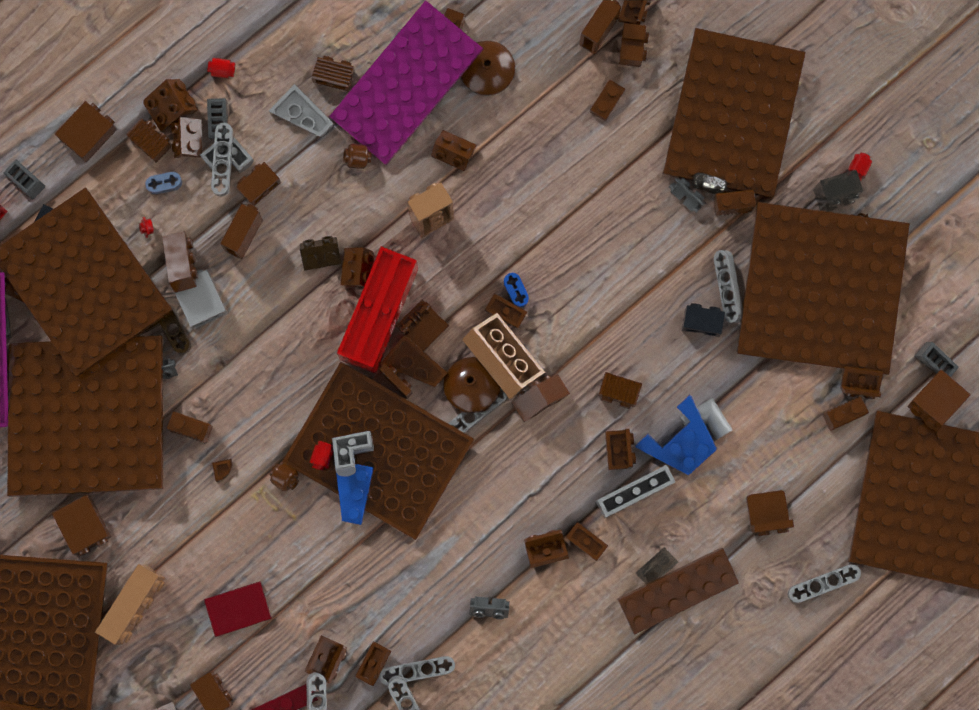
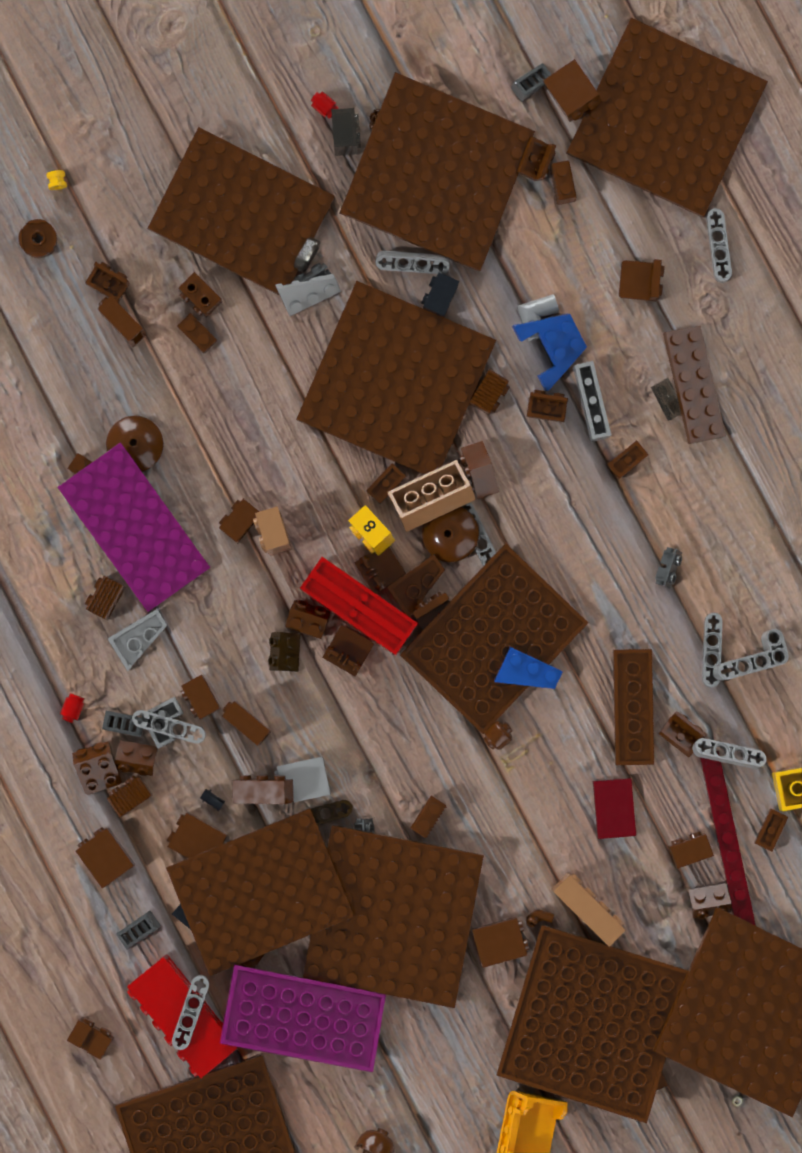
camera: 75 degrees left, 5 degrees up
(115, 557) = (537, 916): none -> reddish brown arm
(123, 209) = (194, 836): none -> reddish brown brick
(146, 227) = (217, 817): red plate -> none
(162, 218) = (212, 799): none -> black pin
(164, 187) = (171, 791): sand blue beam -> none
(222, 469) = (475, 795): reddish brown tile -> none
(321, 455) = (488, 693): red brick -> none
(334, 312) = (348, 650): none -> reddish brown hinge
(342, 604) = (633, 707): none -> reddish brown plate
(345, 449) = (485, 666): light grey brick -> none
(357, 156) = (195, 593): reddish brown head -> none
(373, 663) = (696, 690): reddish brown plate -> none
(432, 174) = (239, 520): none -> reddish brown brick
(453, 150) = (212, 497): reddish brown bracket -> none
(455, 305) = (371, 530): none -> yellow brick
(519, 288) = (368, 473): blue beam -> none
(546, 548) = (625, 500): reddish brown bracket -> none
(610, 298) = (396, 379): none -> reddish brown plate
(632, 45) = (147, 294): reddish brown brick -> none
(644, 93) = (200, 295): none -> reddish brown brick
(669, 189) = (307, 293): none -> light grey wing
(734, 202) = (331, 235): reddish brown brick -> none

